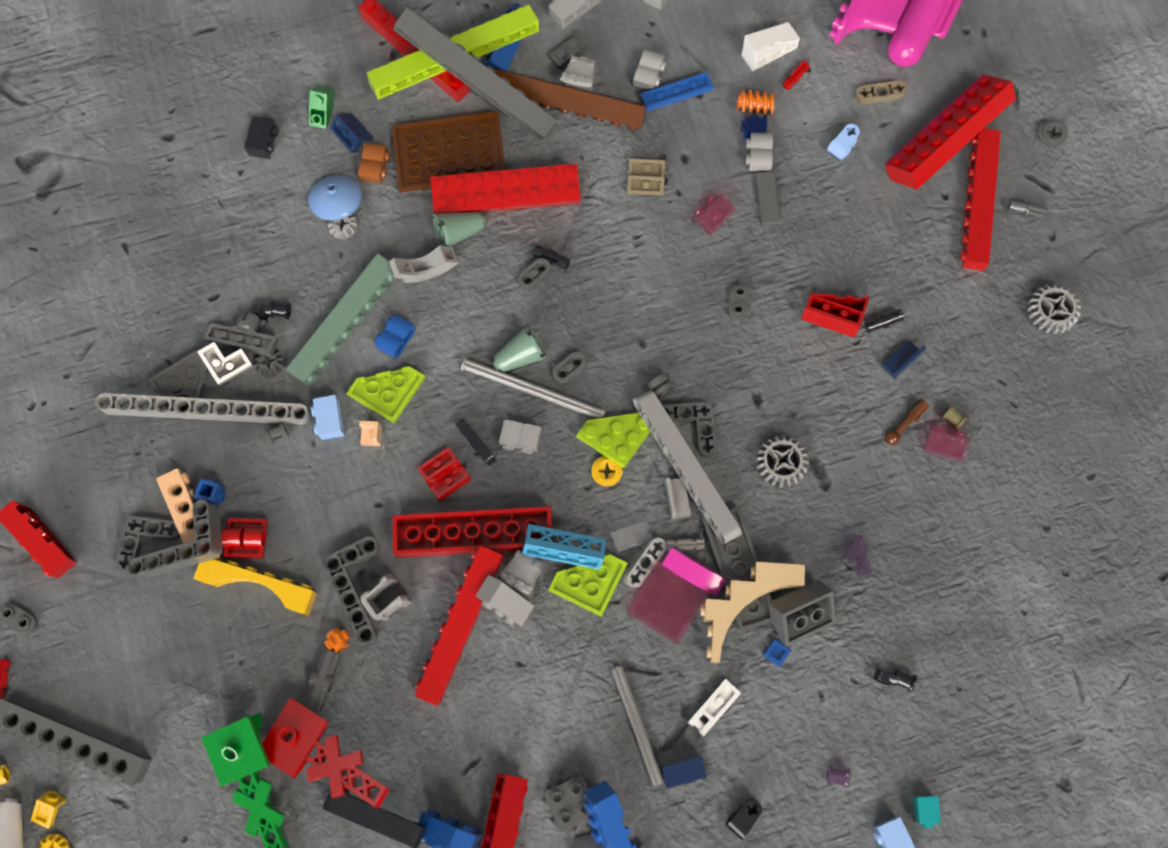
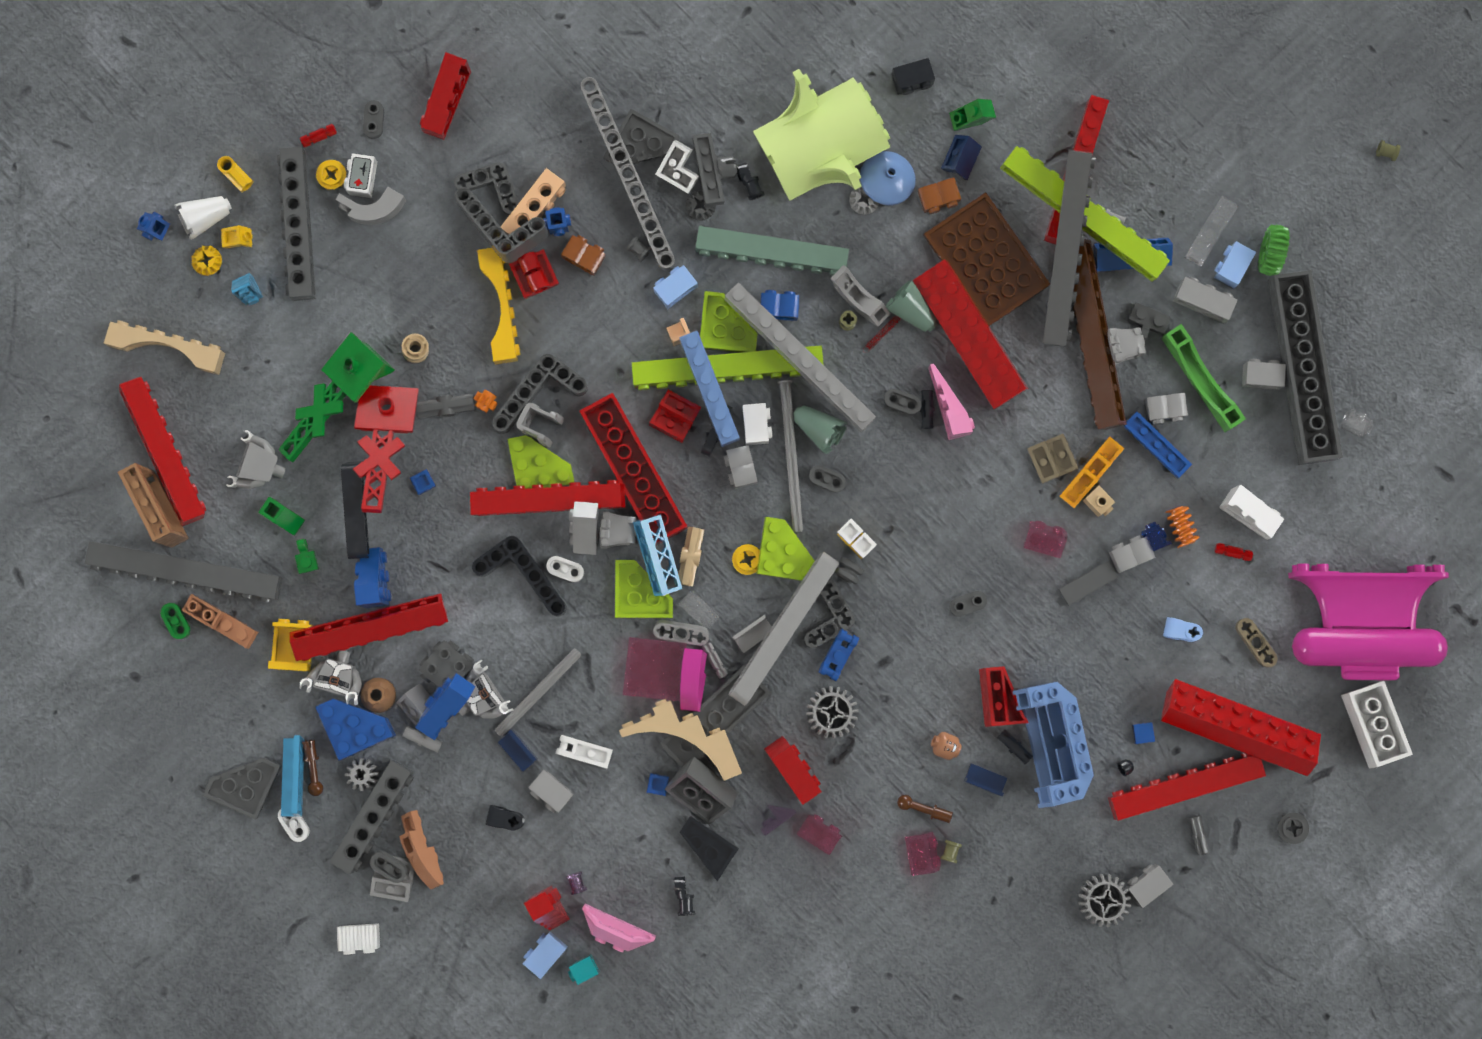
camera: 55 degrees right, 10 degrees up
(37, 680) = (333, 166): none -> yellow gear
(62, 656) = (361, 175): none -> brick
(103, 823) = (246, 289): none -> dark azure slope
(104, 661) = (376, 213): none -> light grey arch
(253, 485) = (583, 255): none -> dark orange brick
(258, 689) = (415, 339): none -> tan wheel
(268, 228) = (822, 137): none -> yellowish green cylinder
(381, 739) = (422, 482): none -> blue tile
(421, 621) = (537, 464): none -> lime plate
(423, 407) = (725, 367): none -> lime brick
(435, 426) = (709, 388): none -> medium blue brick
(437, 280) = (843, 324): none -> olive bush
(449, 336) = (799, 357): none -> light grey brick
(465, 263) = (883, 334): none -> red piece
(488, 404) = (755, 424): none -> white brick
(515, 680) = (526, 570): none -> black beam
(533, 641) = (565, 569): none -> white plate
(564, 237) = (953, 413): none -> bright pink wedge
(578, 519) = (690, 556): none -> tan piece
(606, 35) = (1217, 401): none -> bright green arch
(622, 778) = (485, 698): none -> torso
(636, 365) = (857, 541): none -> white hips
(673, 151) = (1091, 472): none -> light orange slope
(702, 156) = (1099, 502): none -> tan brick
(732, 431) = (838, 654): none -> blue plate
(738, 757) = (551, 791): none -> light grey brick
(819, 519) = (793, 769): none -> red wedge
(850, 815) = (547, 908): none -> red wedge
(857, 377) = (946, 746): none -> nougat head
(858, 631) = (709, 846): none -> black wing
(889, 525) = (819, 834): none -> clear pink bracket
(901, 281) = (1056, 743): none -> medium blue wedge
(902, 760) = (615, 931): none -> bright pink wedge
(918, 212) = (1143, 733): none -> blue tile
(942, 240) = (1125, 767): none -> black hinge
(993, 31) = (1376, 724): none -> white brick
(1056, 266) = (1148, 885): none -> light grey brick

